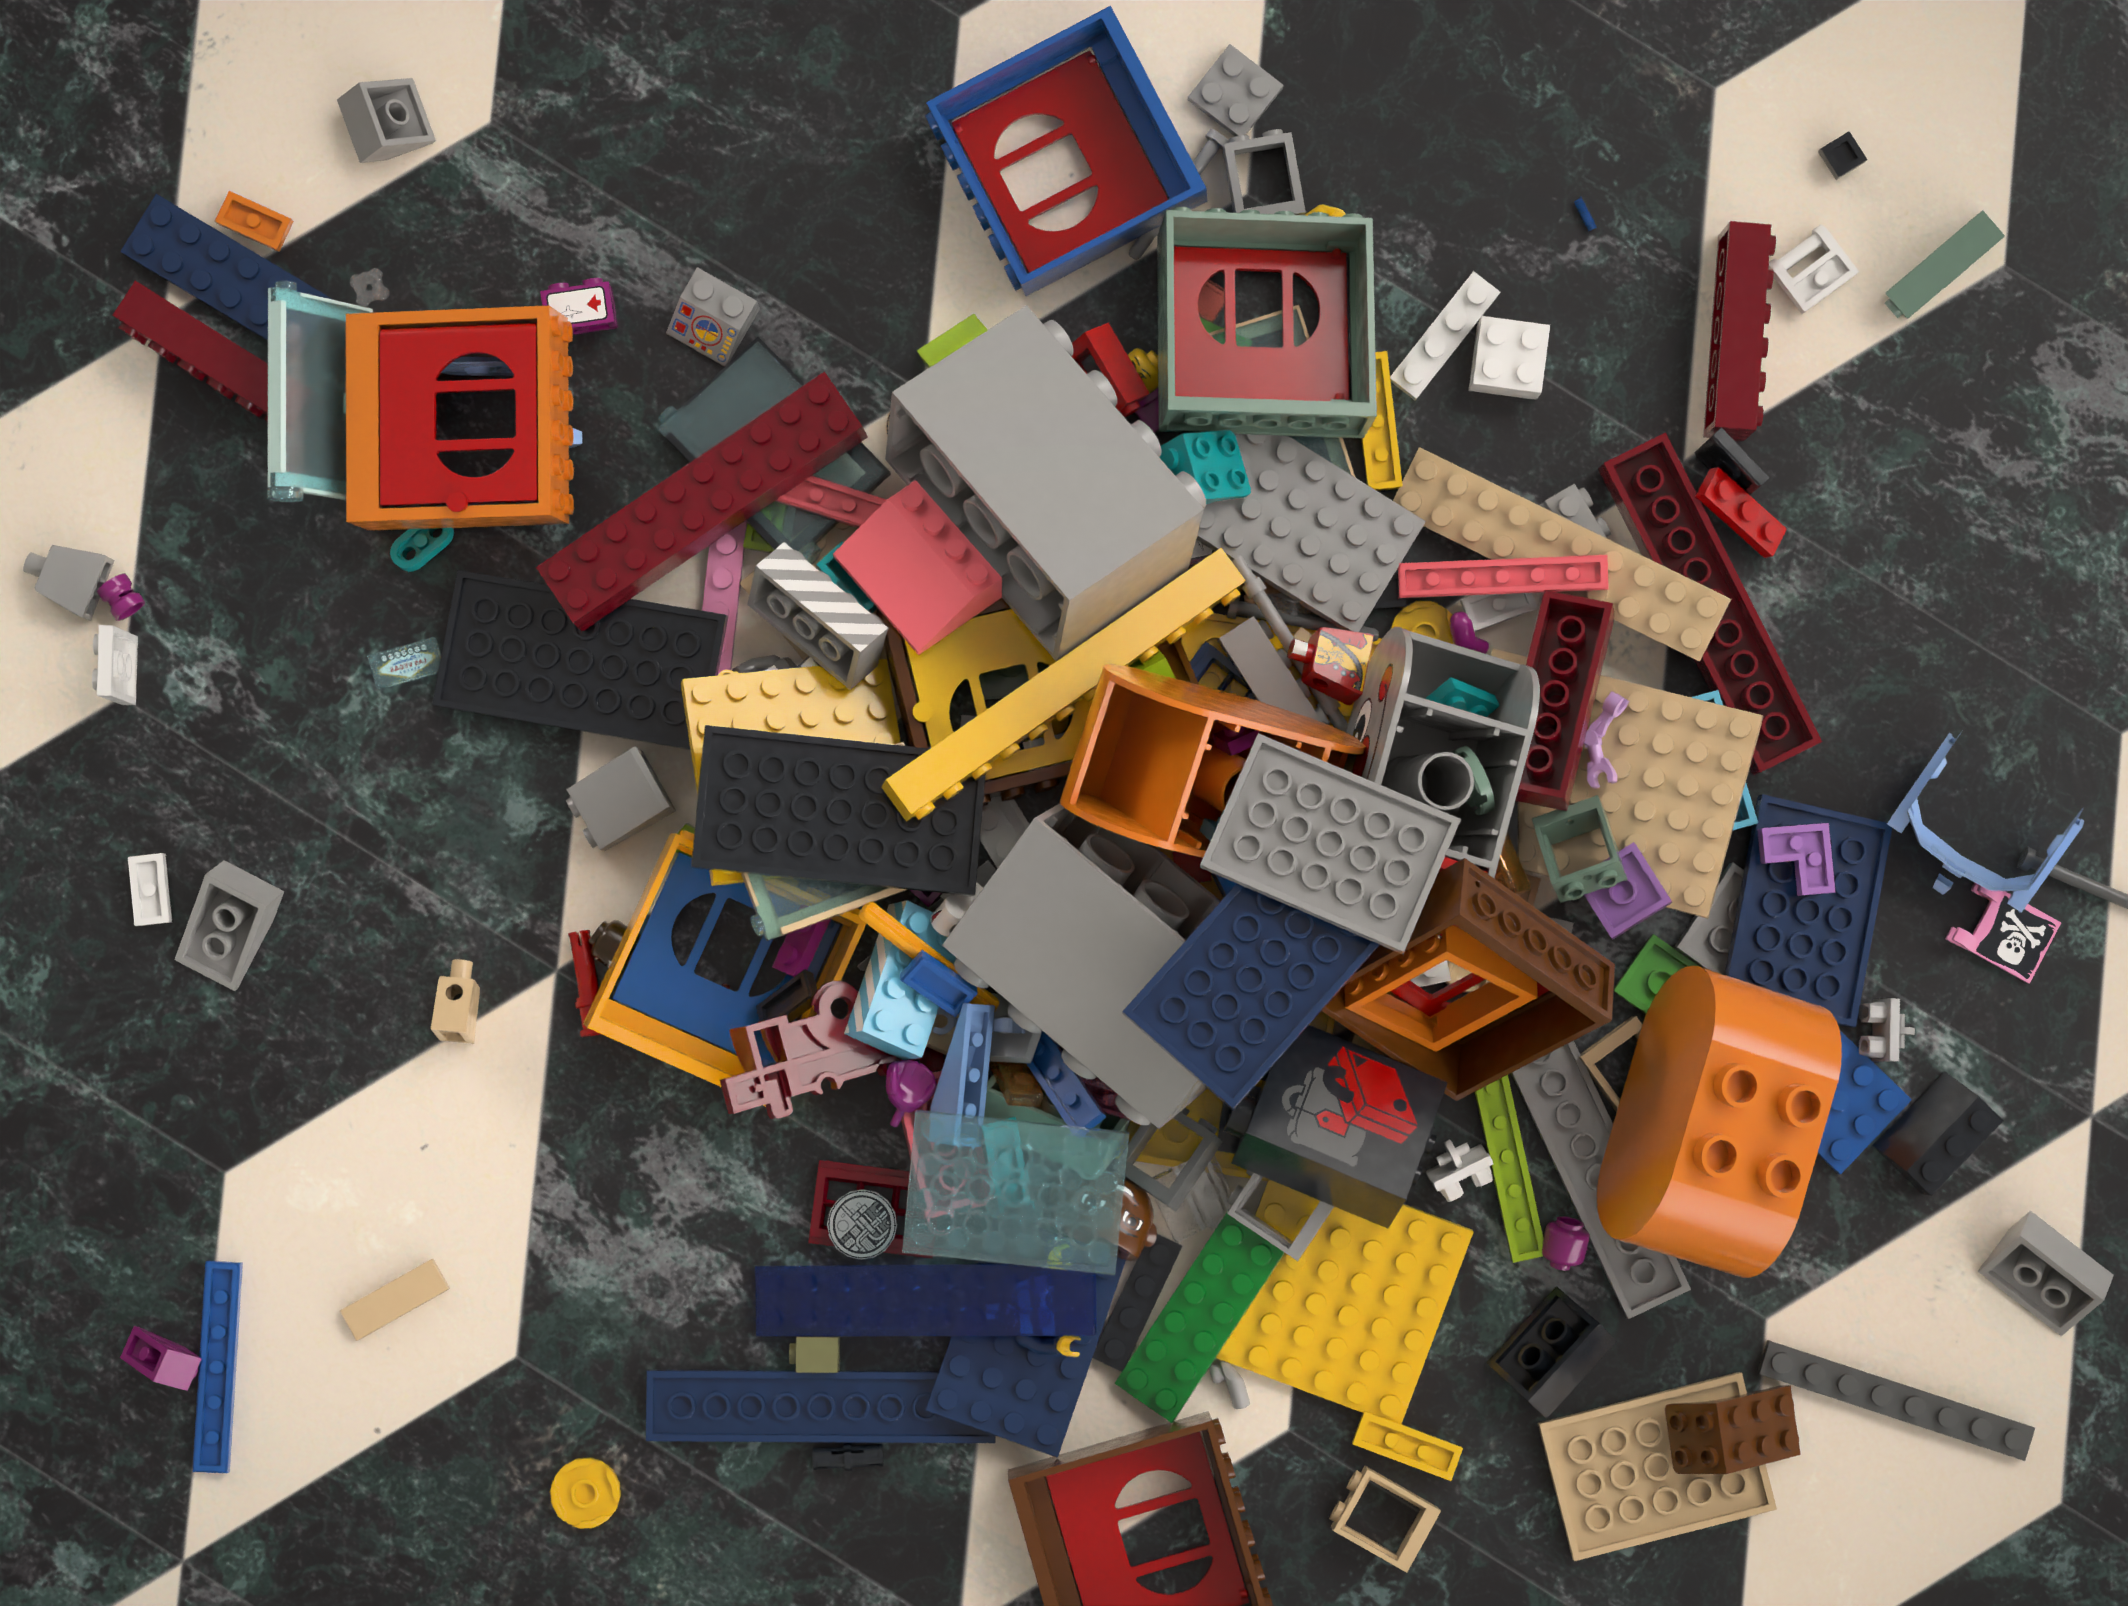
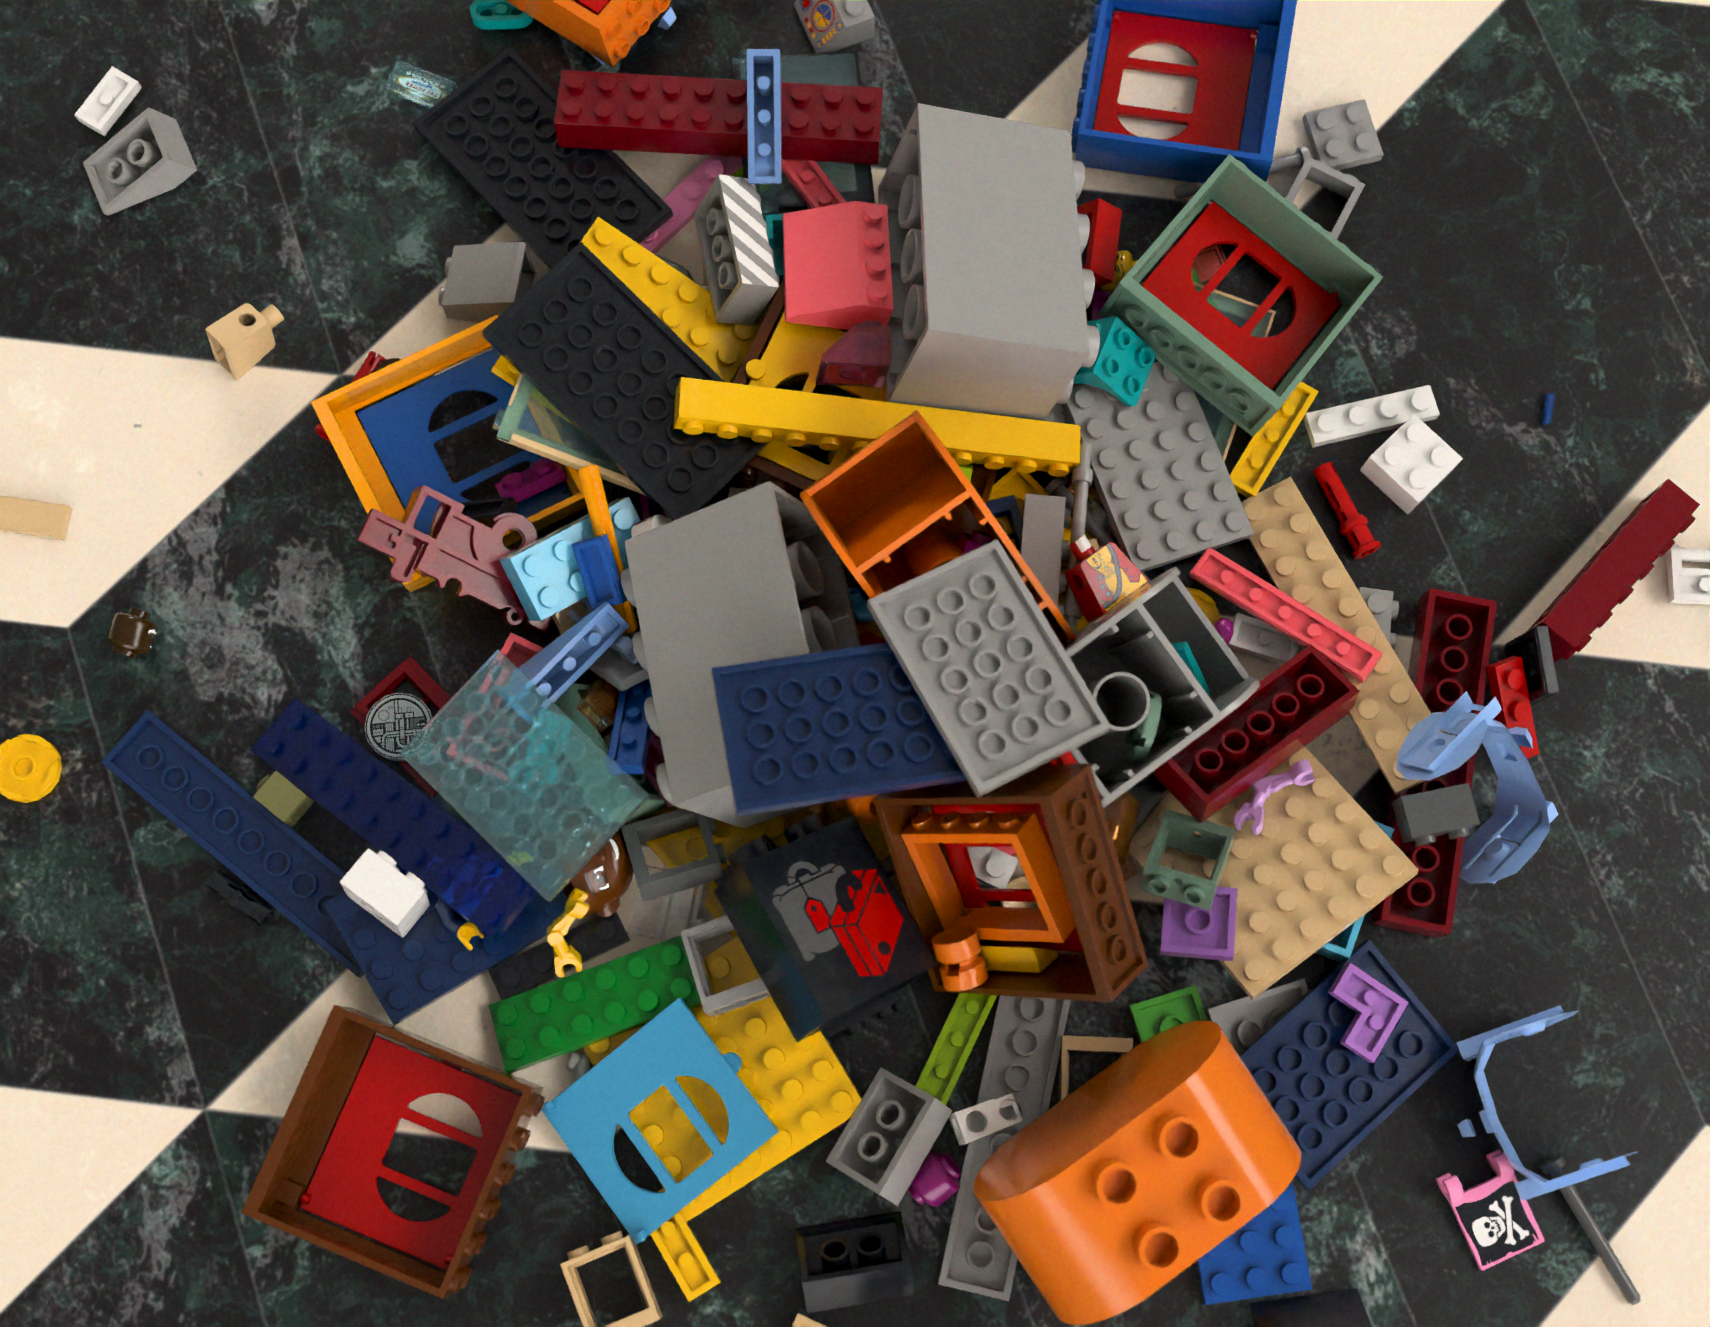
camera: 40 degrees right, 10 degrees down
(579, 1320) = (132, 633): none -> dark brown head
(754, 485) = (764, 116): none -> medium blue slope
(908, 1087) = (517, 638): magenta piece -> none
(976, 1363) = (386, 892): none -> white brick
(1004, 637) = (857, 357): none -> clear pink slope
(1145, 1298) = (563, 953): none -> yellow piece
(1281, 1321) = (605, 1095): none -> dark azure door
(1457, 1165) = (898, 1046): white hips -> none
(1461, 1064) = (961, 964): none -> orange wheel
(1491, 1037) = (1017, 958): none -> yellow slope
(1498, 446) = (1352, 523): none -> red pin
(1507, 1240) = (889, 1136): none -> light grey slope
(1570, 1168) = (985, 1118): none -> white leg
(1711, 618) = (1520, 806): none -> light blue animal
(1743, 655) = (1435, 814): none -> dark grey brick
(1887, 1030) = (1334, 1213): light grey hips -> none

